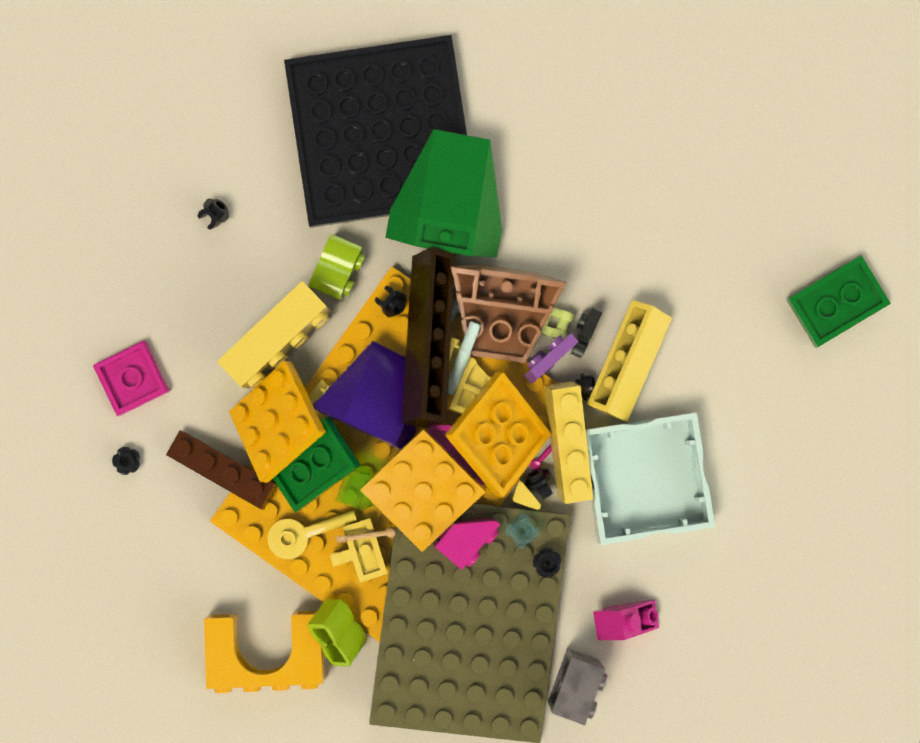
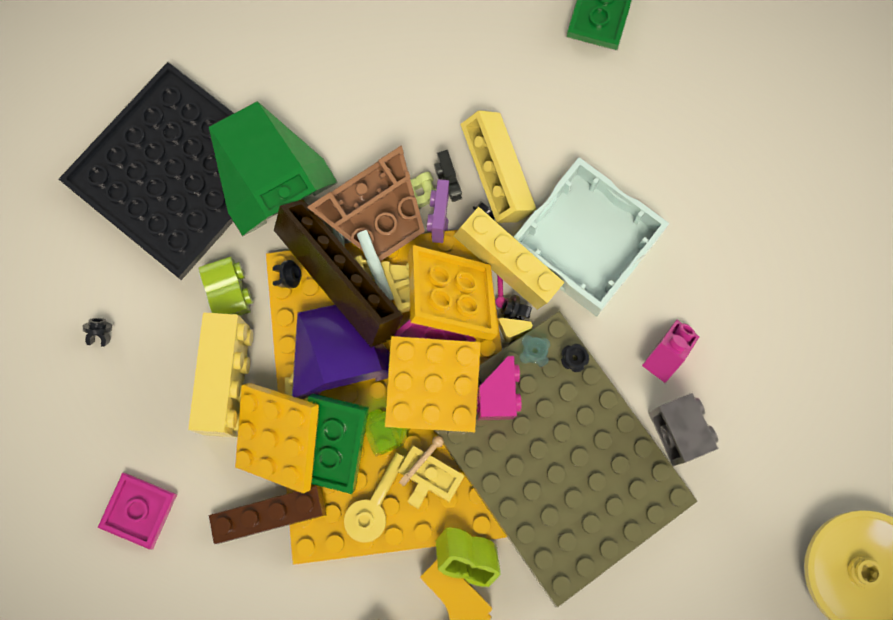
camera: 30 degrees left, 10 degrees down
(133, 464) = (194, 577): black plate -> none

